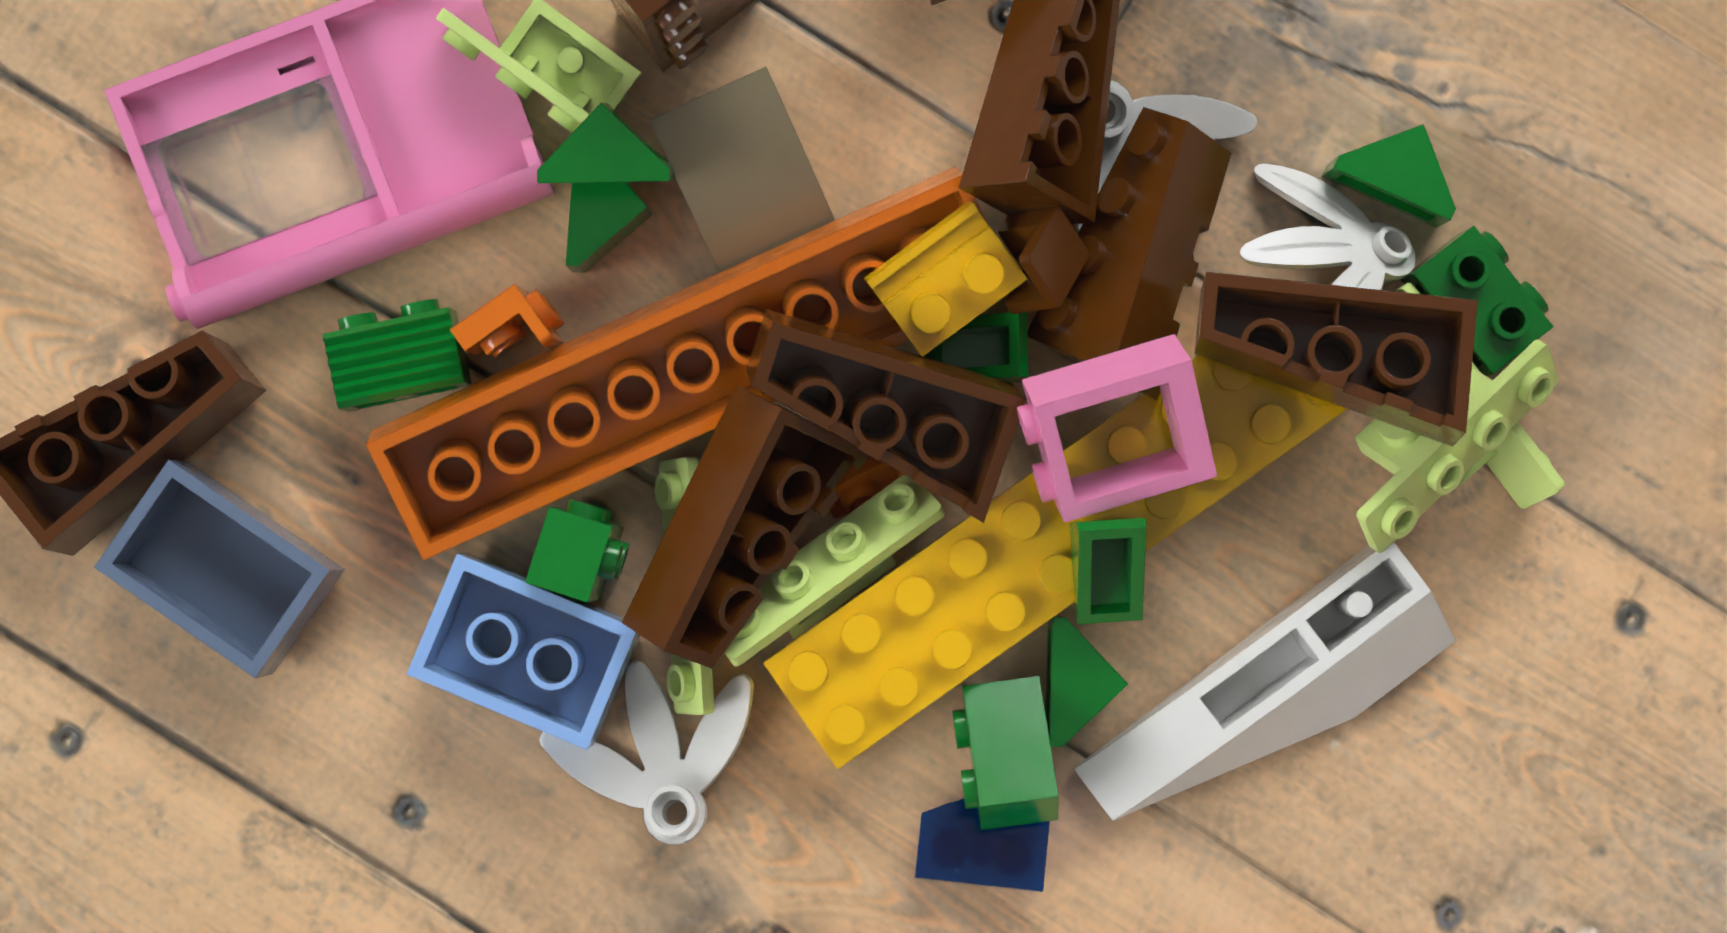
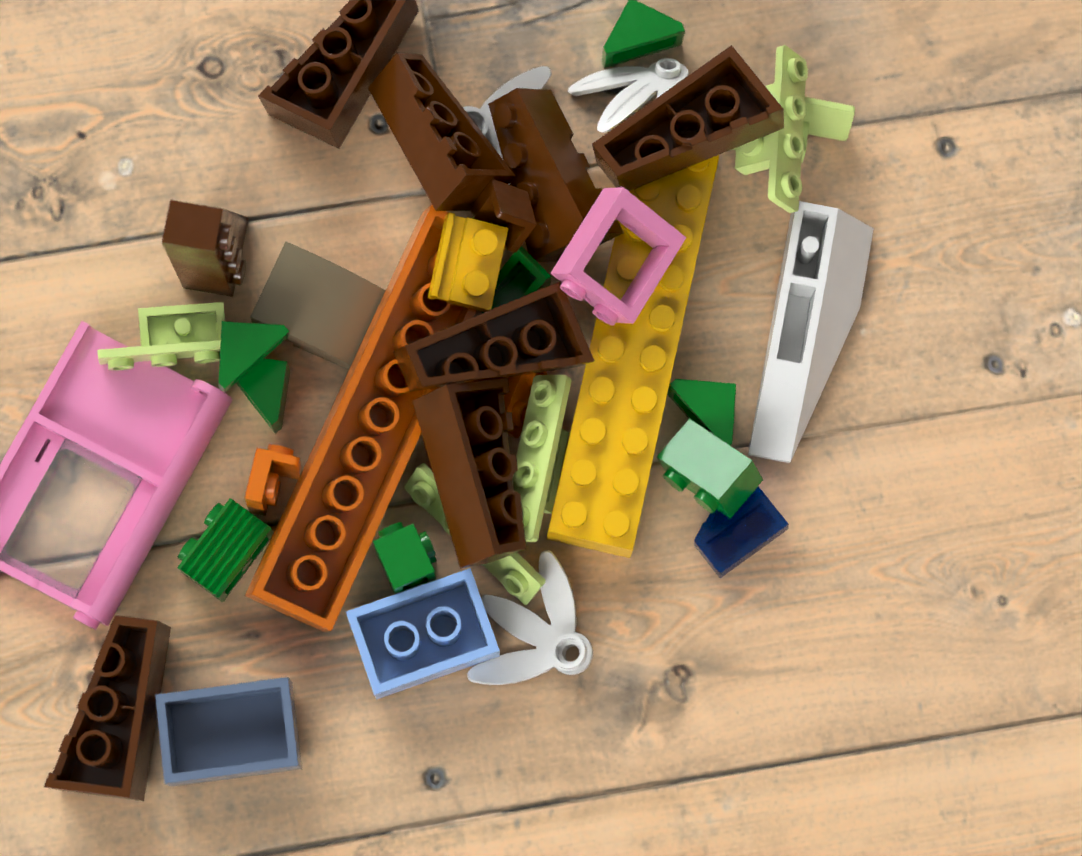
camera: 45 degrees left, 10 degrees down
(1108, 569) = (674, 328): green slope -> none
(1507, 312) = (754, 46): green brick -> none

